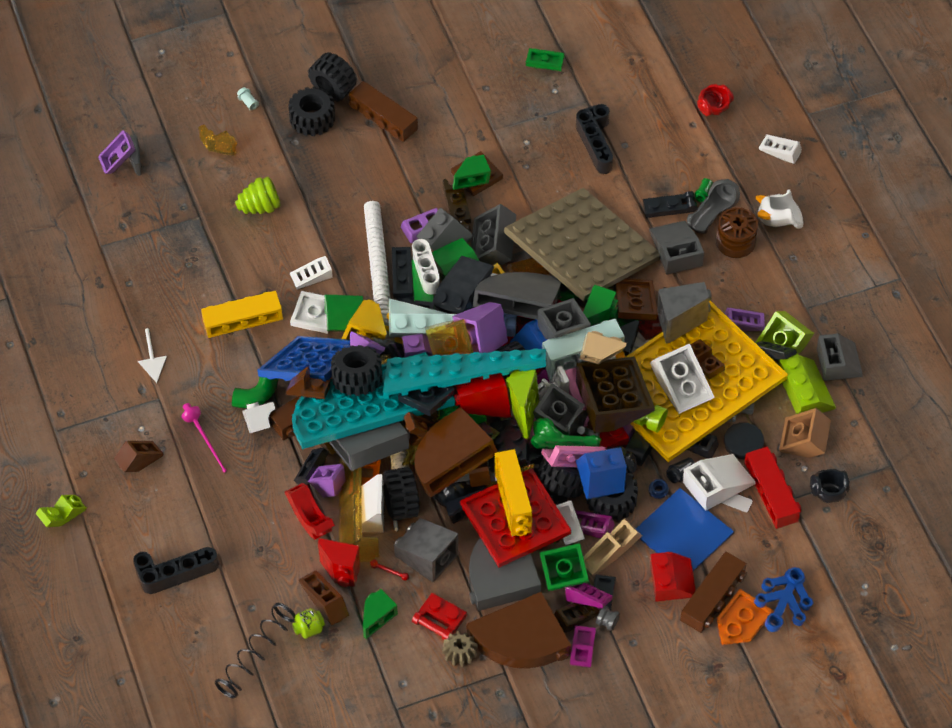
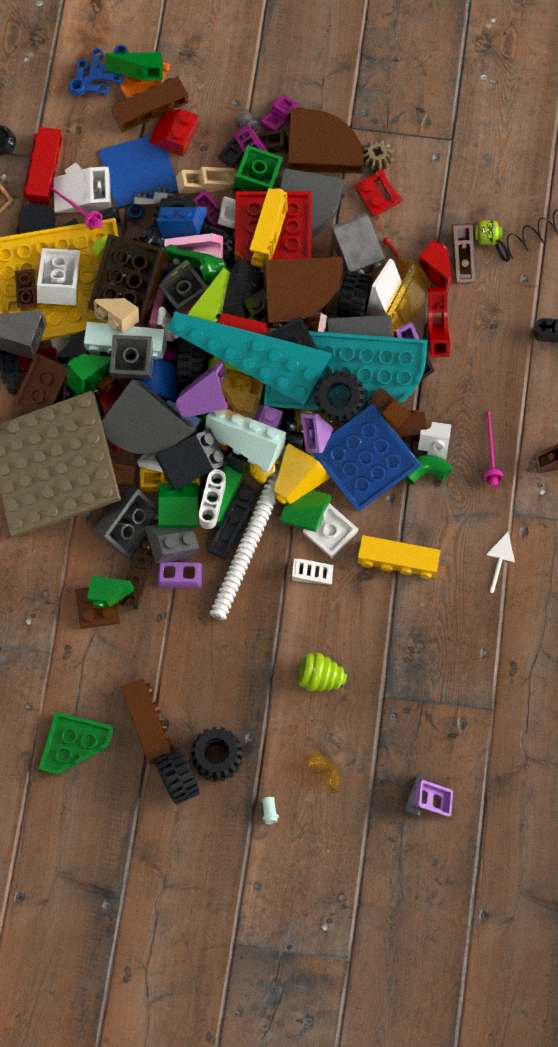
camera: 150 degrees left, 15 degrees up
(377, 612) = (427, 216): green slope -> none
(432, 75) = (73, 742): none -> green plate
(653, 500) = (157, 196): none -> black slope
(686, 440) = (92, 220): none -> dark pink sword
(741, 613) = (141, 66): none -> green slope

